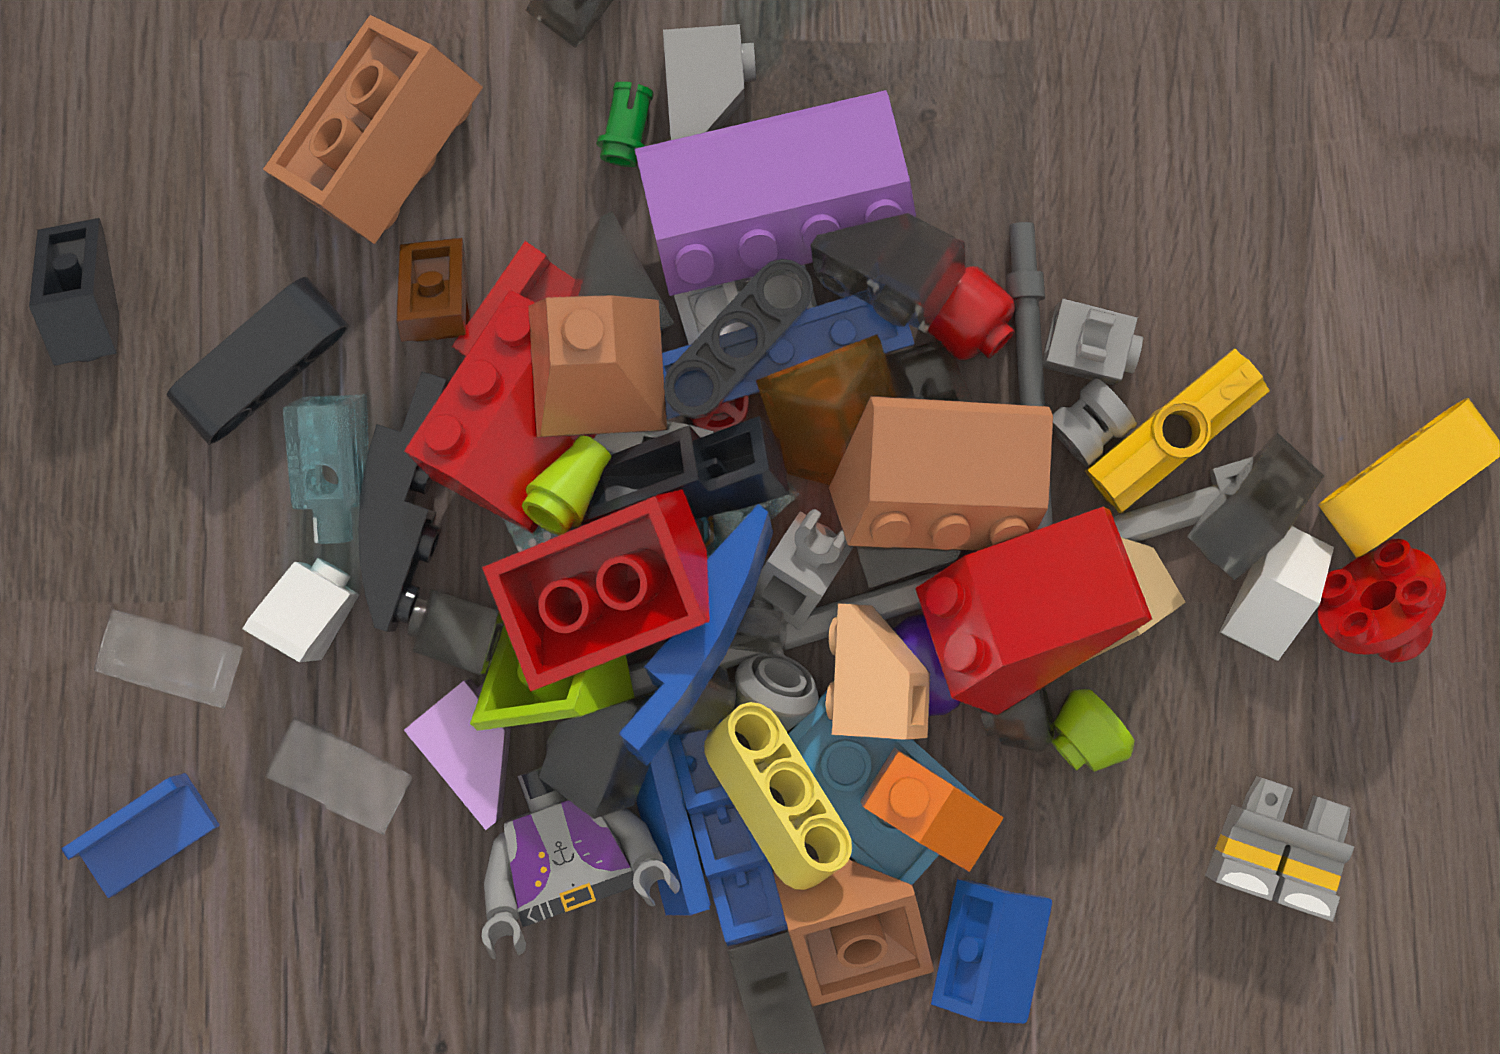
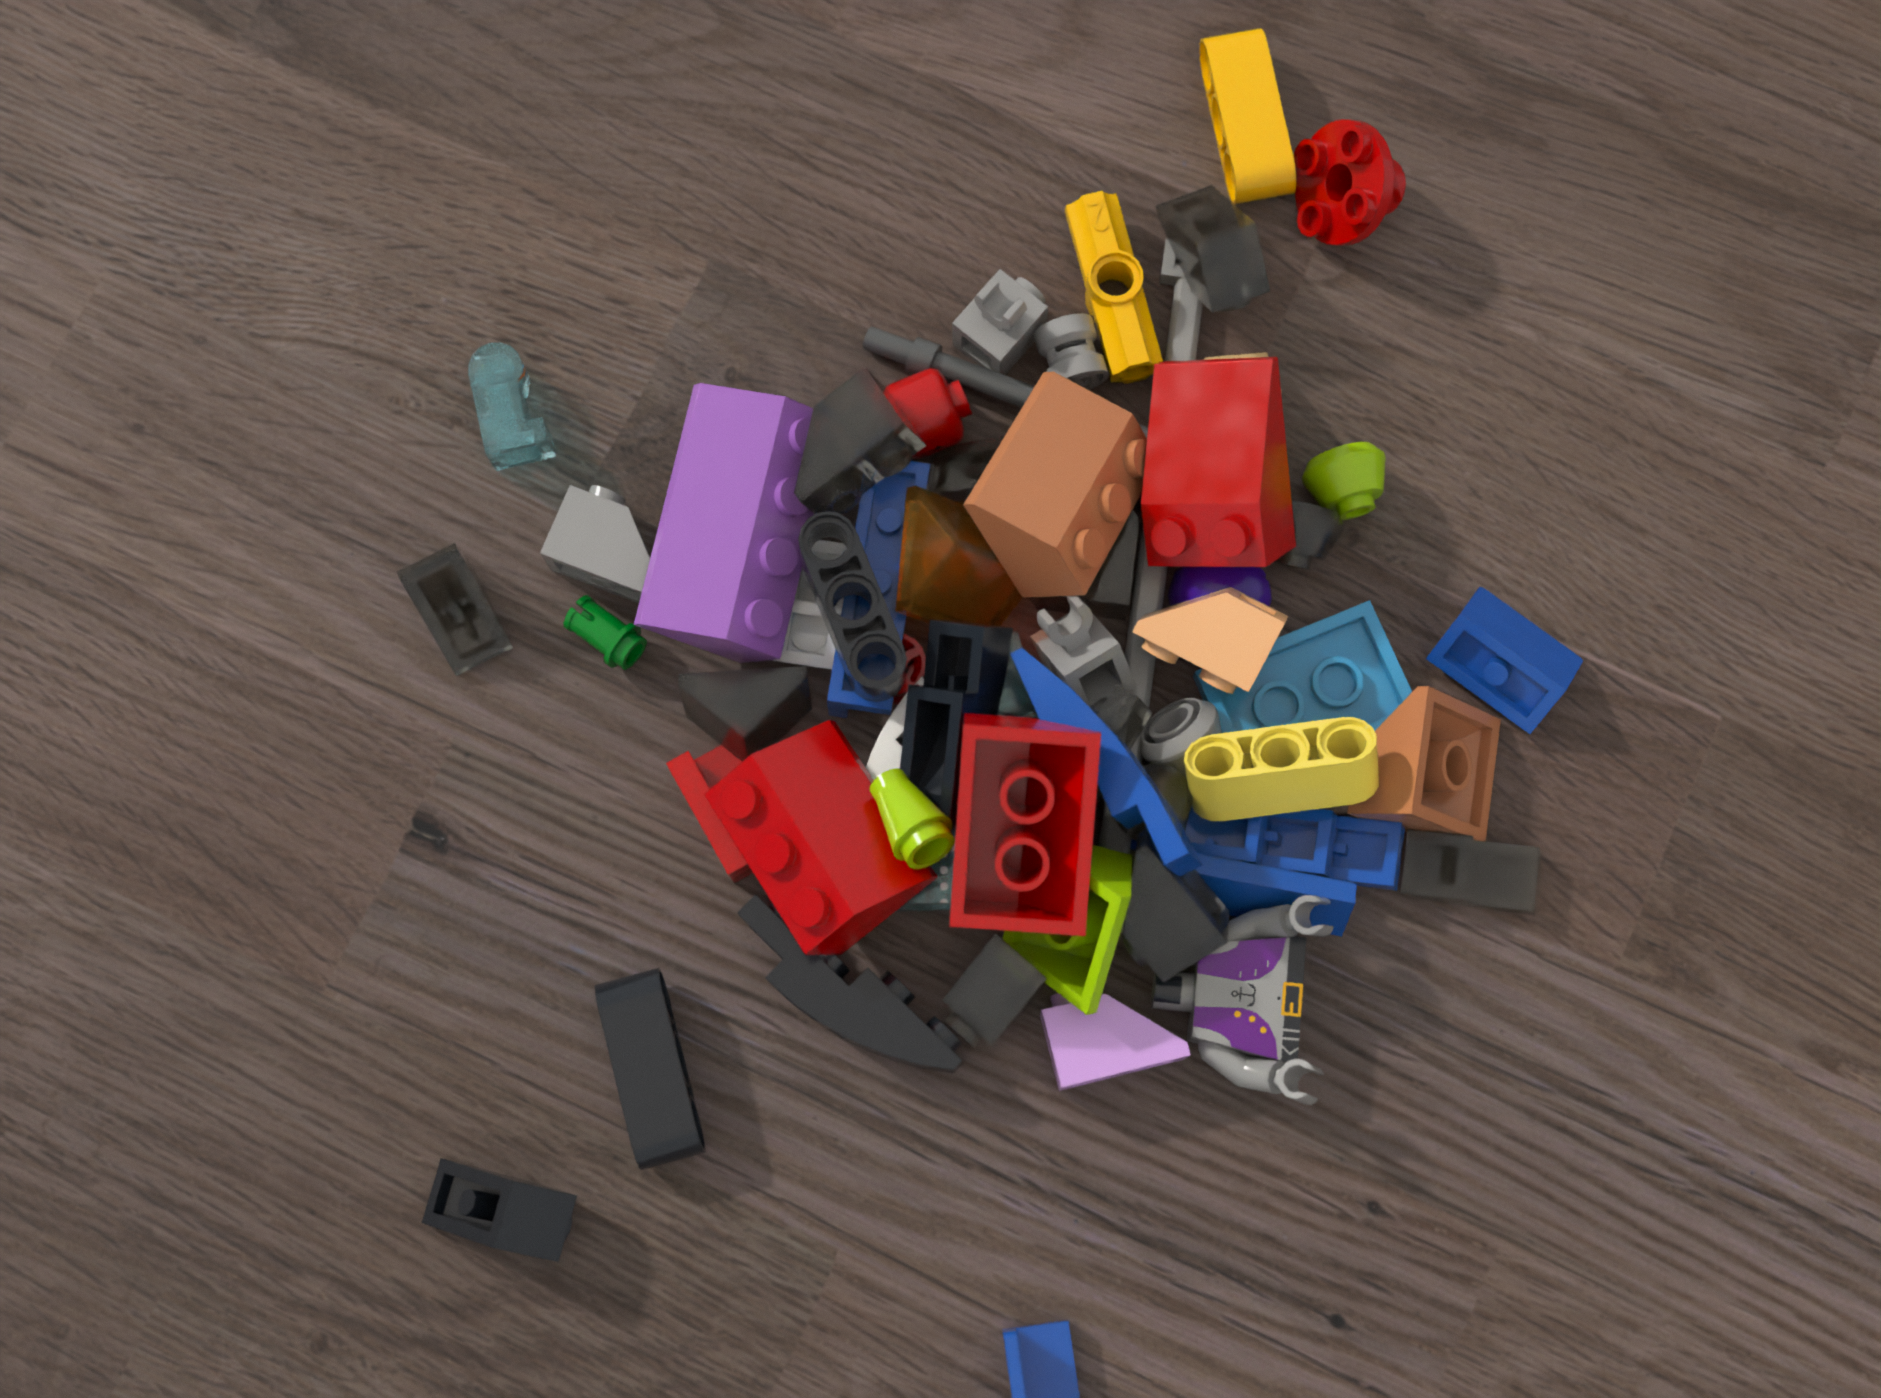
camera: 65 degrees left, 10 degrees down
(168, 658) = (886, 1289): clear slope -> none
(304, 610) = (904, 1128): white slope -> none
(331, 434) = (750, 1031): clear light blue torso -> none
(338, 775) = (1073, 1179): clear slope -> none
(374, 128) = (491, 858): nougat slope -> none
(432, 290) = (668, 873): reddish brown slope -> none
(597, 365) = (812, 743): nougat slope -> none
(931, 810) = (1351, 644): orange slope -> none
(1279, 594) = (1302, 271): white slope -> none
(1280, 859) = (1532, 372): light grey hips -> none

